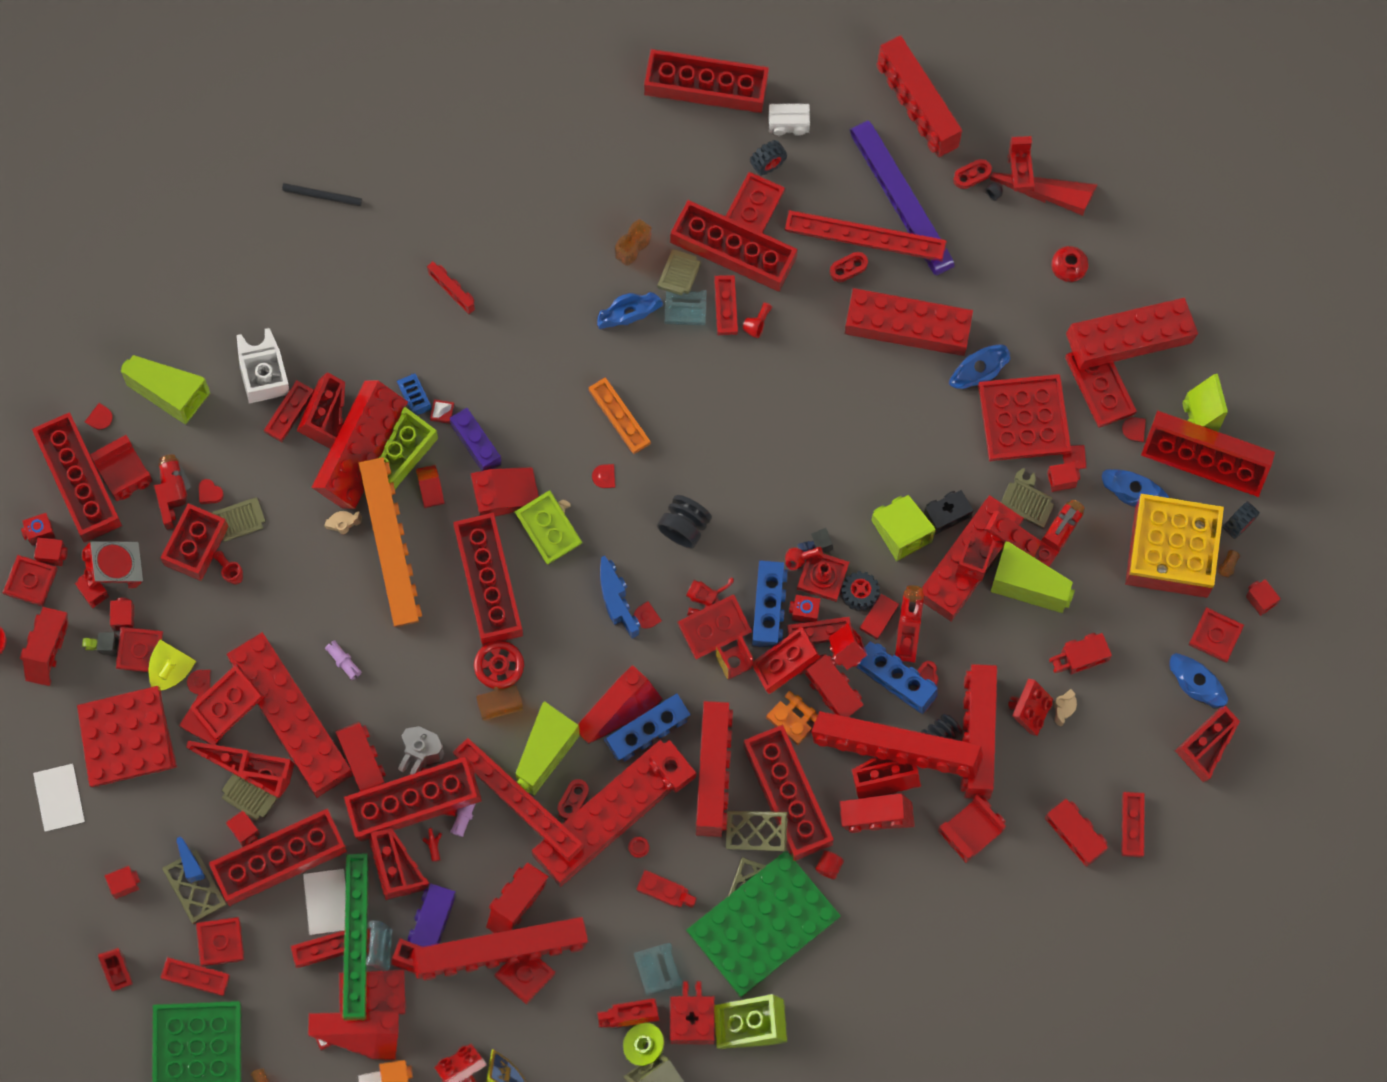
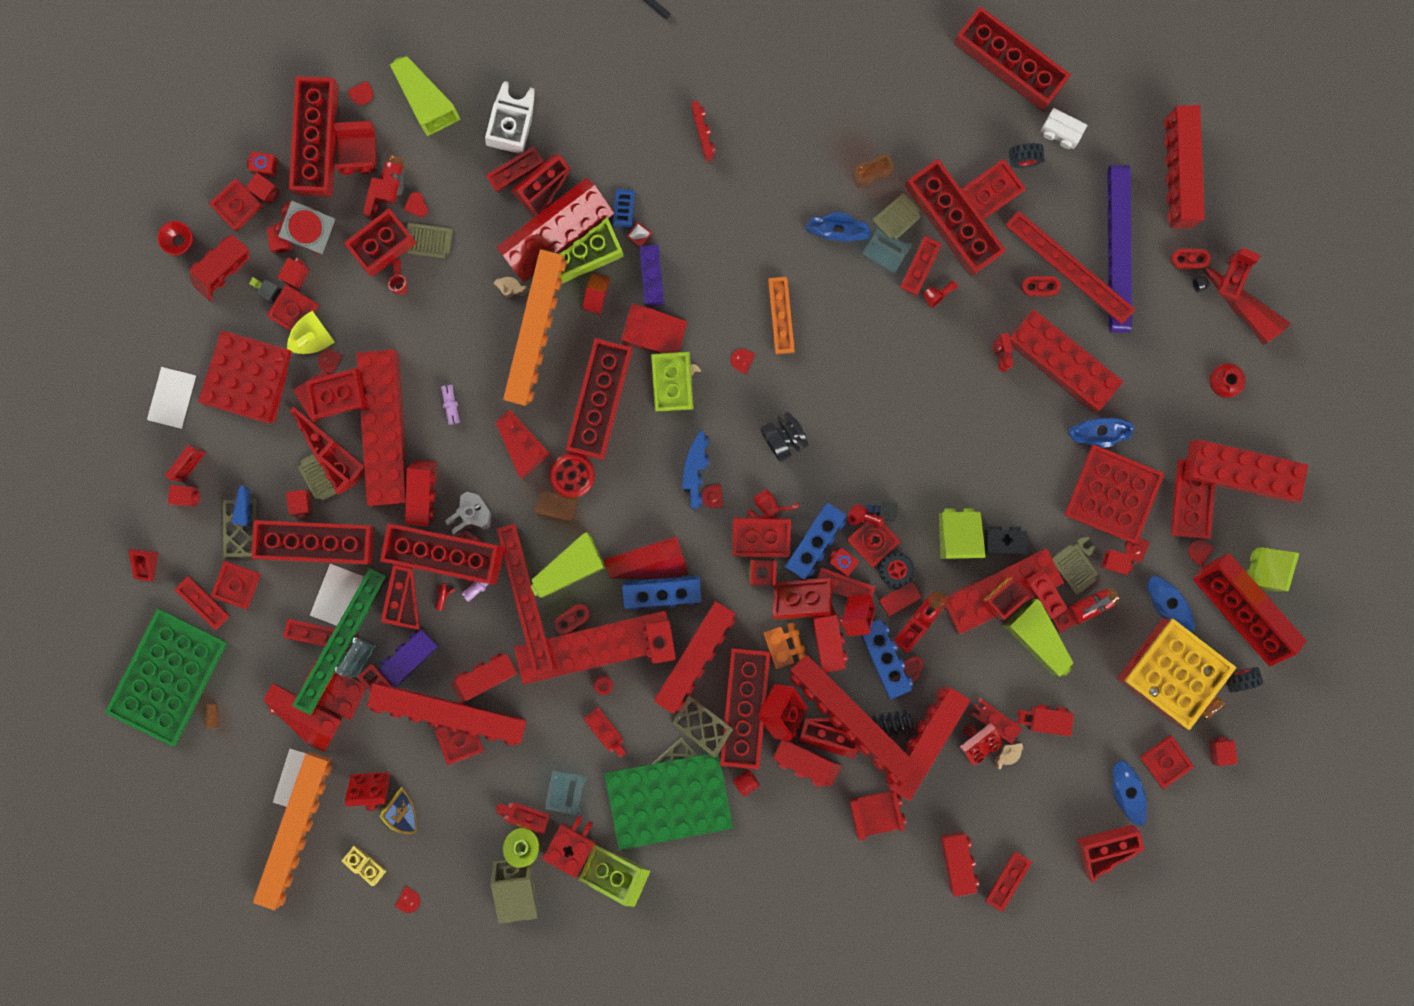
camera: 30 degrees right, 15 degrees up
(110, 847) = (185, 463): none -> red plate
(433, 658) = (521, 444): none -> red wedge
(827, 774) = (783, 712): none -> red hinge
(844, 339) = (1003, 349): none -> red plate
(1050, 682) = (1005, 727): none -> red hinge

